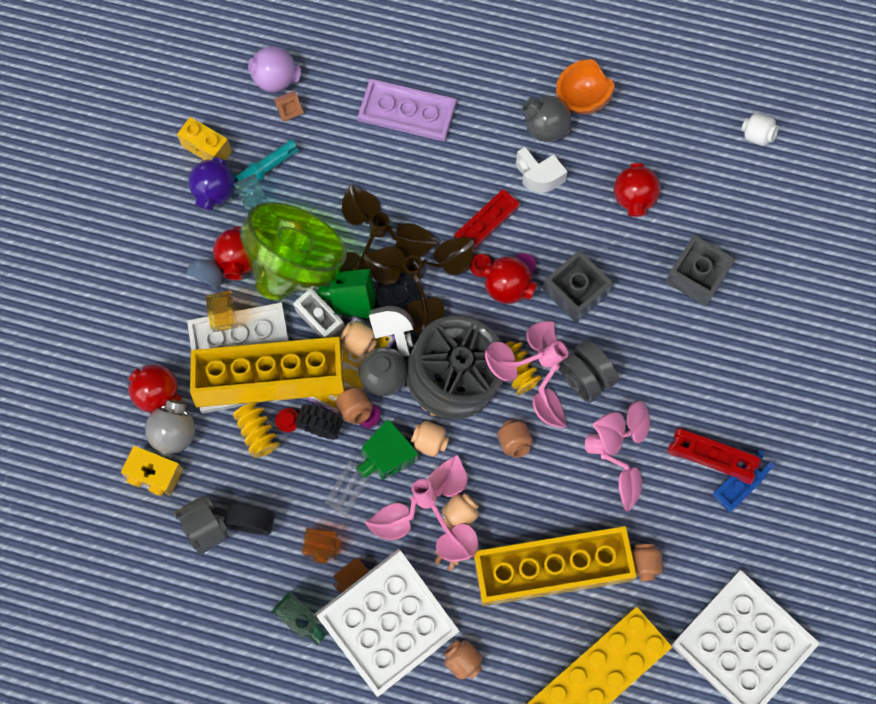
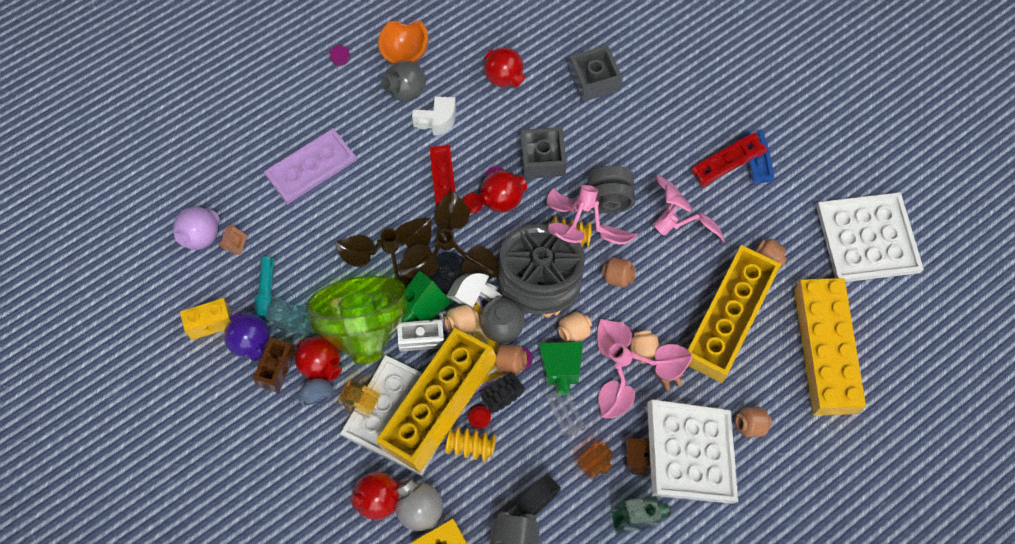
camera: 55 degrees left, 5 degrees down
(203, 223) = (274, 365): none -> reddish brown brick
(532, 48) = (339, 55): none -> magenta tile

